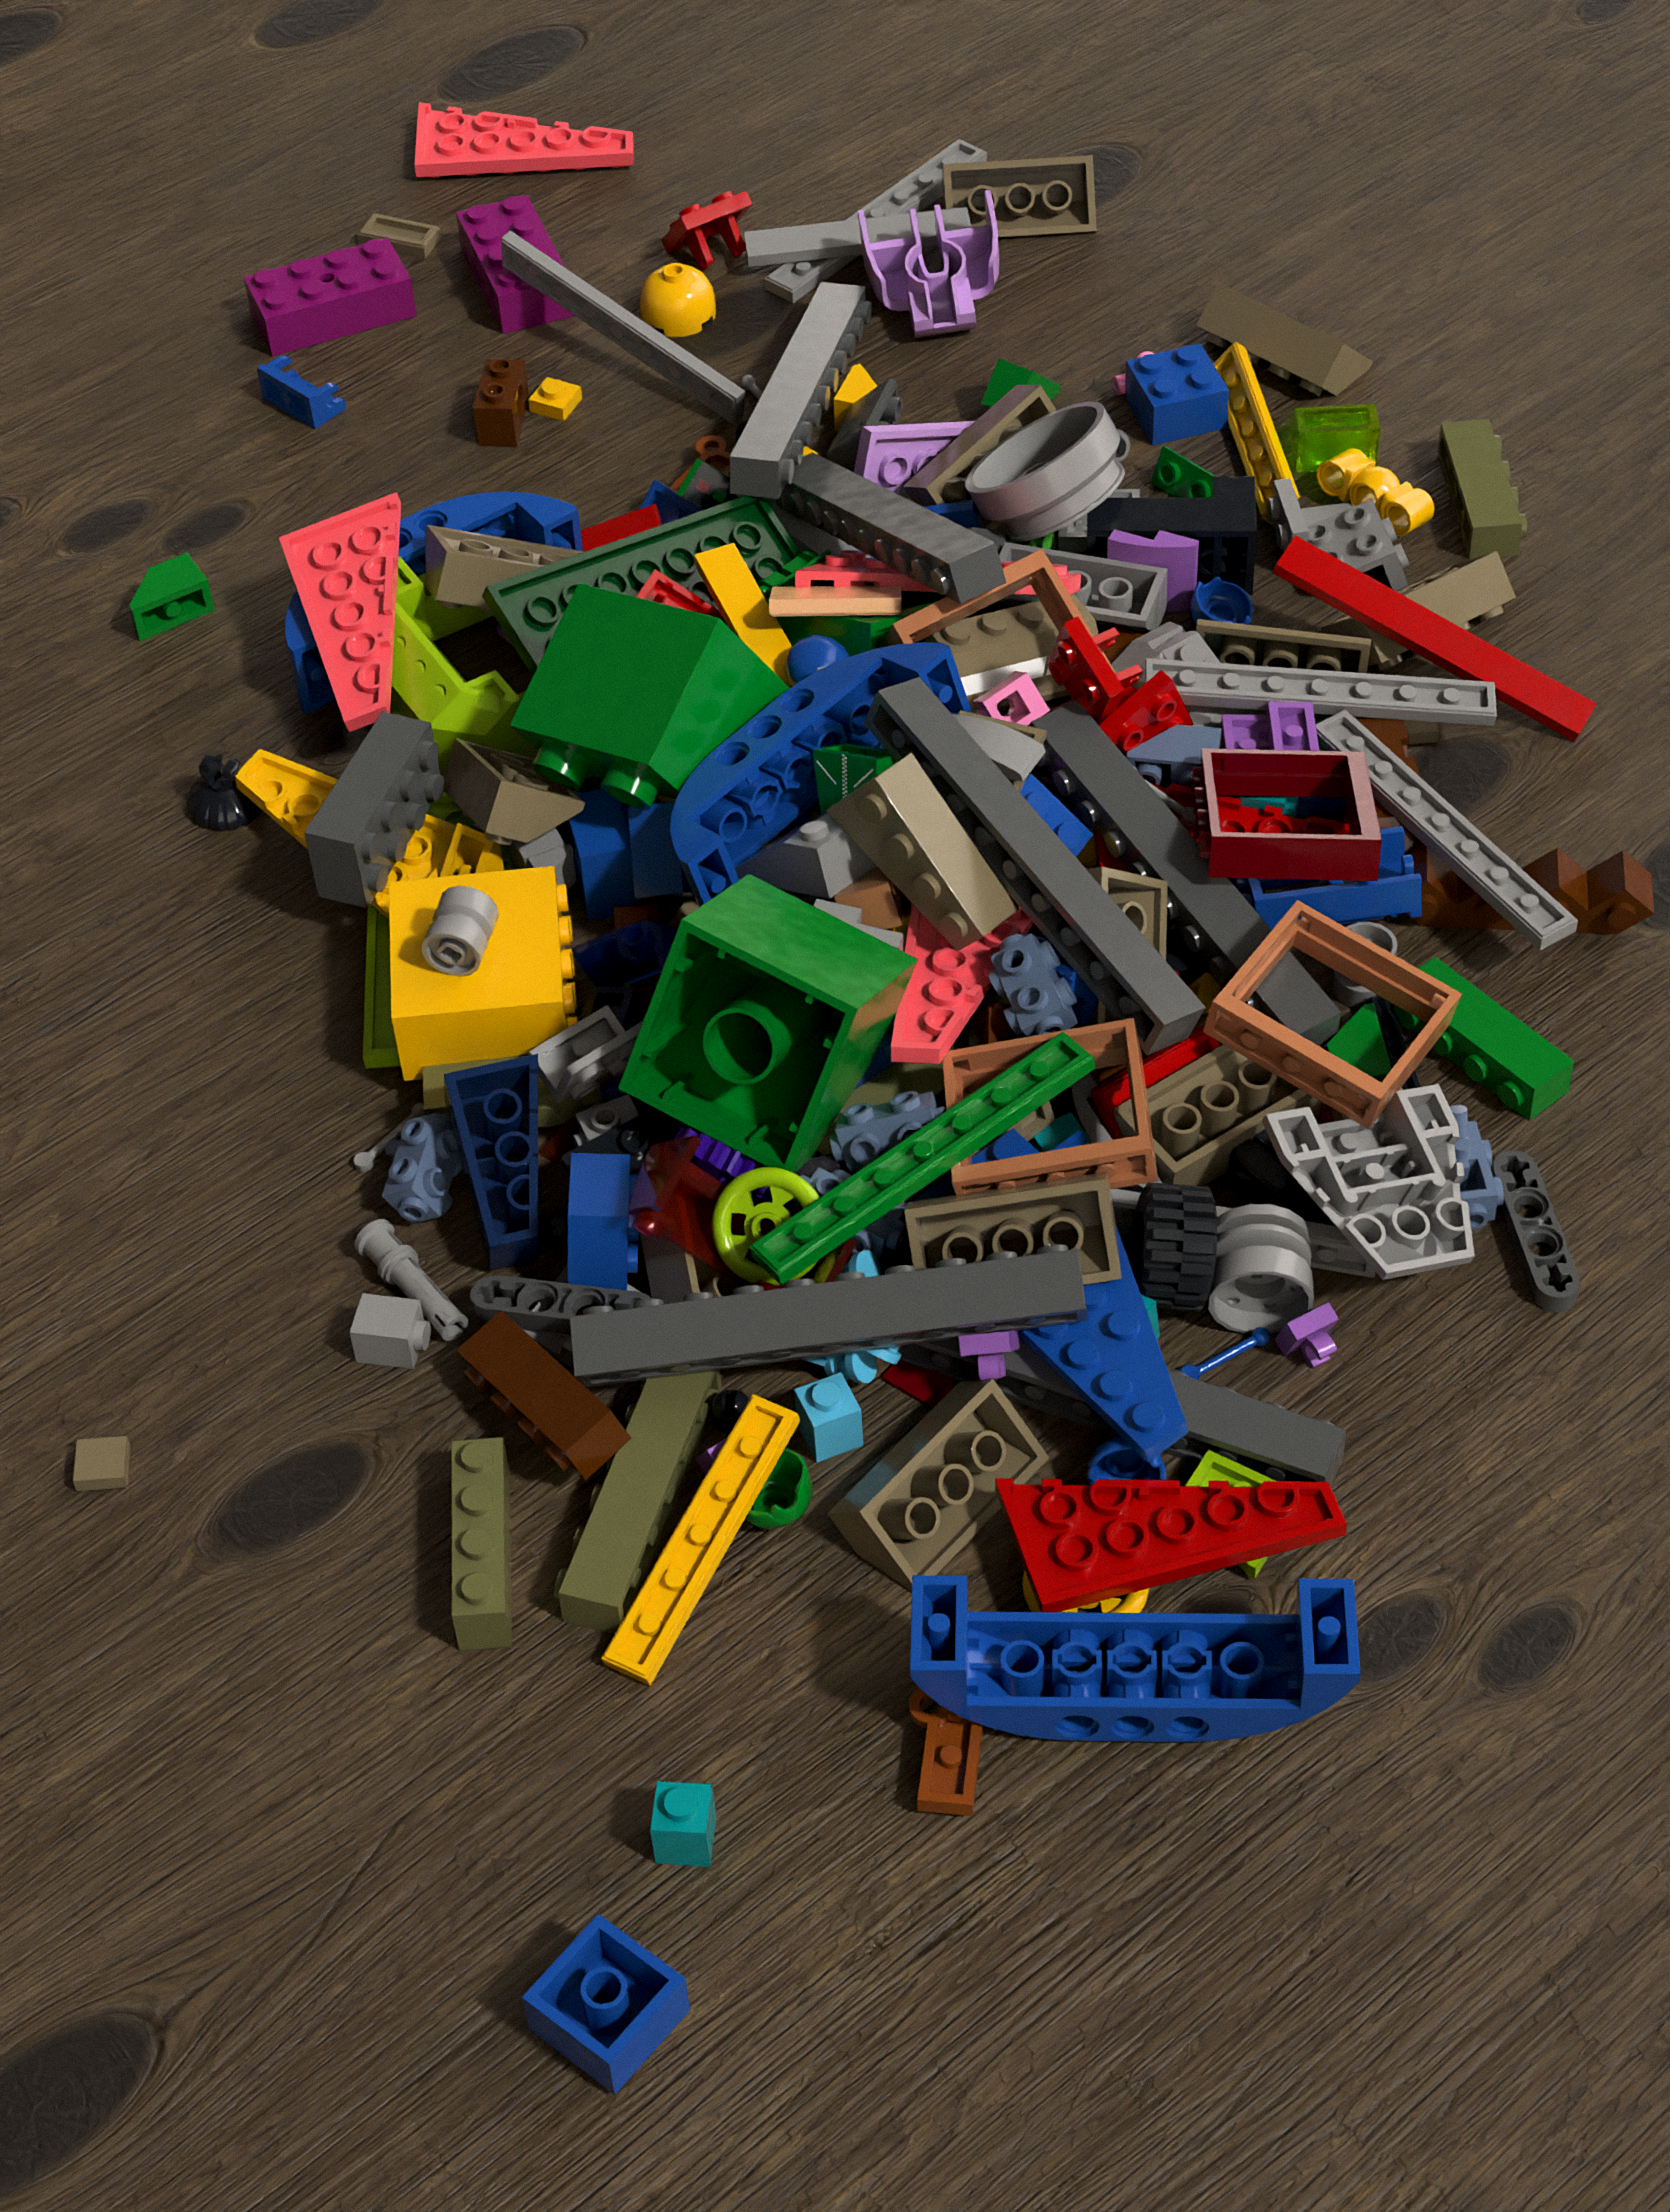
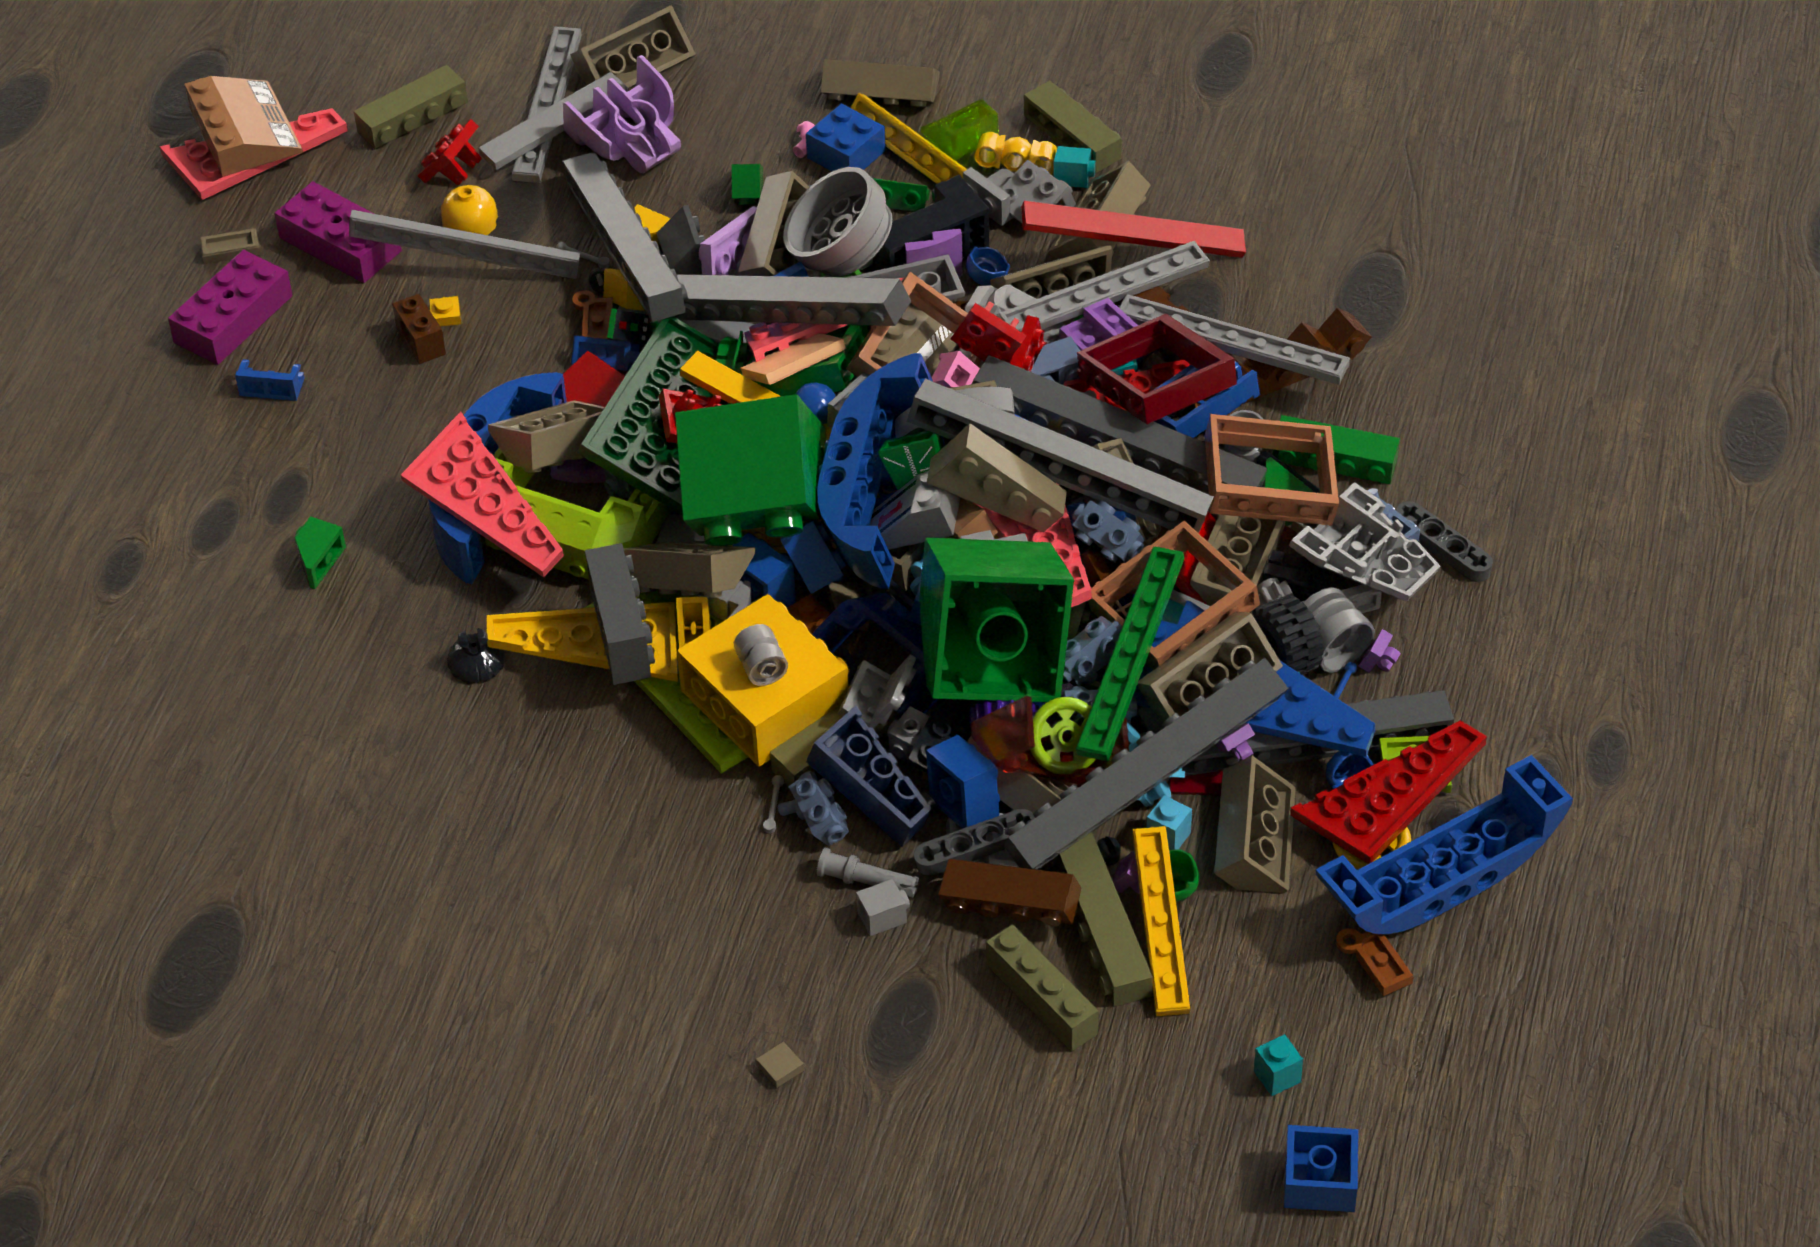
camera: 35 degrees left, 0 degrees up
(514, 105) = (241, 122): none -> medium nougat slope
(719, 163) = (410, 106): none -> olive brick
(1225, 1182) = (1272, 589): none -> light grey gear
(1435, 535) = (1074, 166): none -> teal brick

